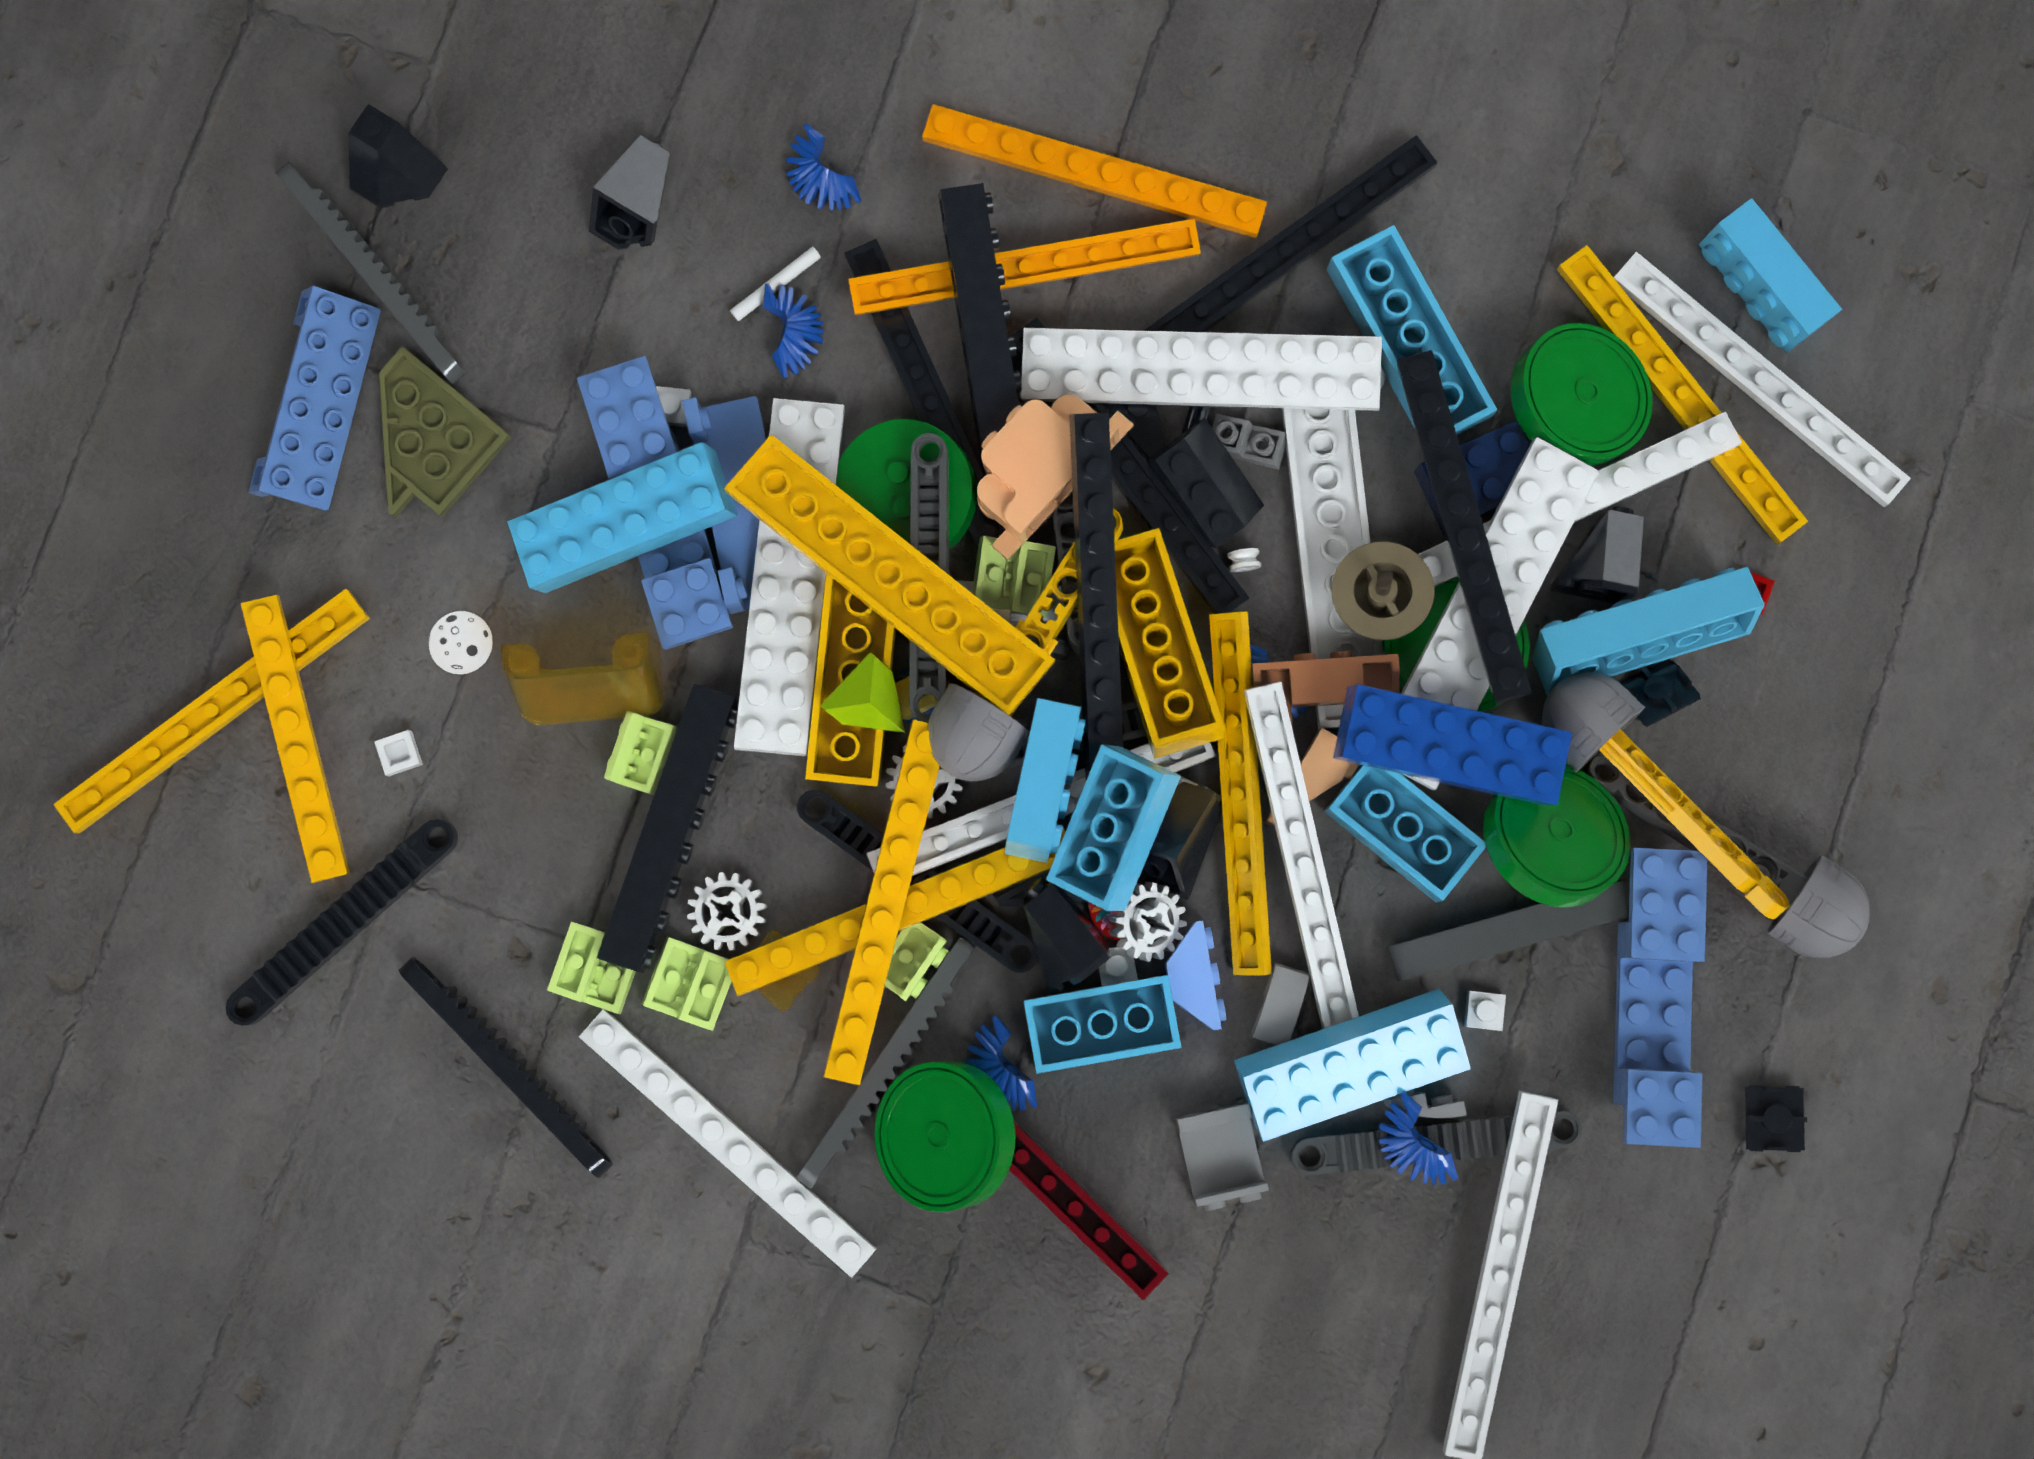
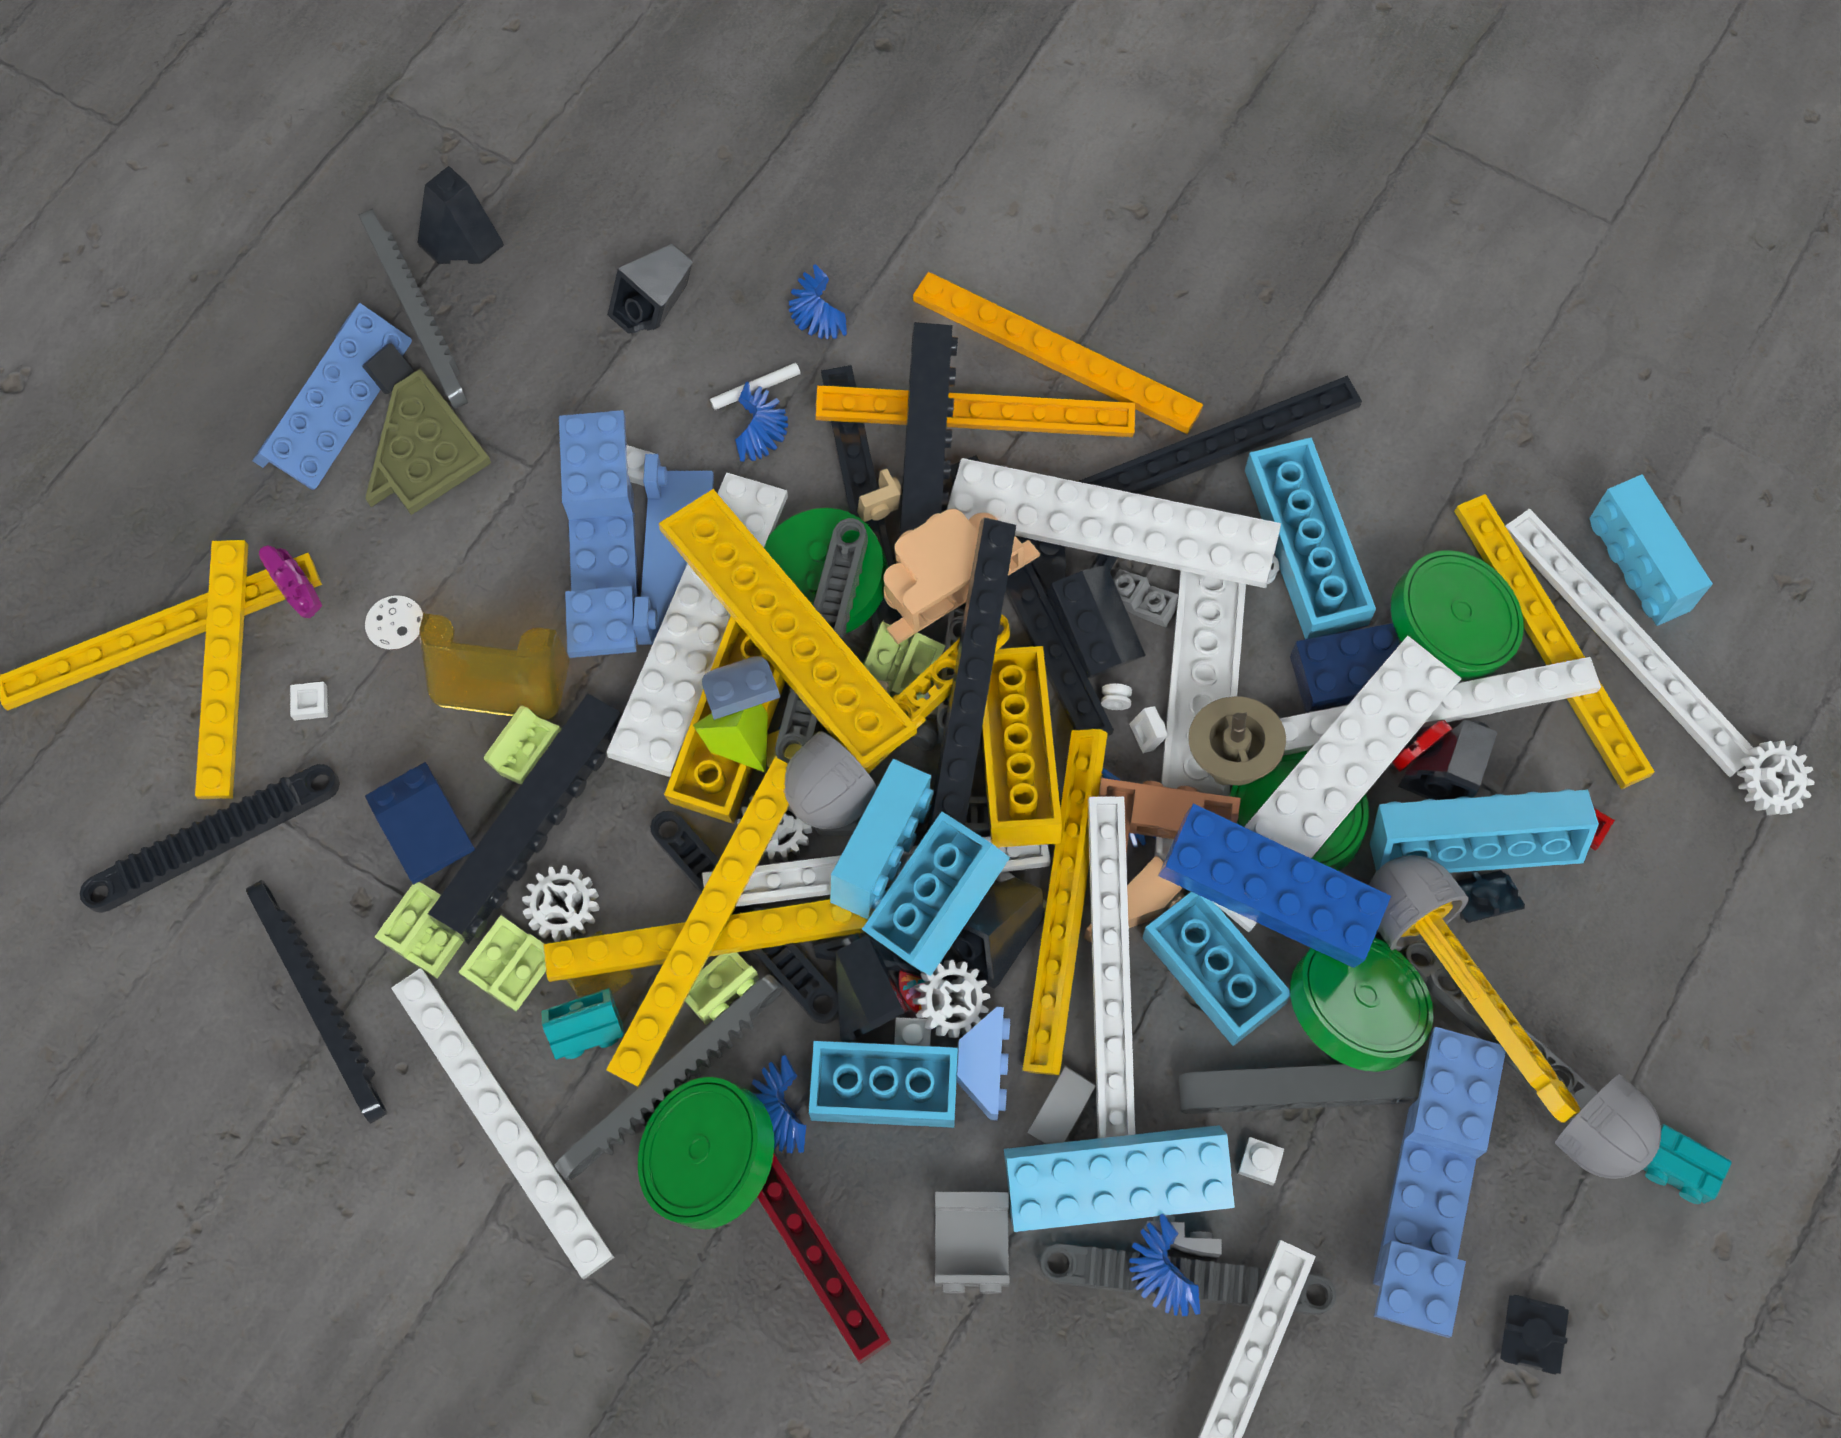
camera: 15 degrees right, 15 degrees down
(339, 628) = (290, 580): none -> magenta hinge
(366, 353) = (387, 368): none -> black piece
(559, 863) = (419, 823): none -> dark blue slope
(622, 518) = (564, 540): medium azure brick -> none
(784, 1032) = (582, 1024): none -> teal brick
(858, 654) = (739, 686): none -> sand blue slope
(948, 401) = (882, 501): none -> tan bracket
(1285, 589) = (1148, 729): none -> white plate
(1463, 527) = (1324, 702): black plate -> none
(1573, 547) = (1421, 745): none -> red tile
(1899, 924) = (1688, 1167): none -> teal brick
(1930, 500) = (1777, 778): none -> white gear

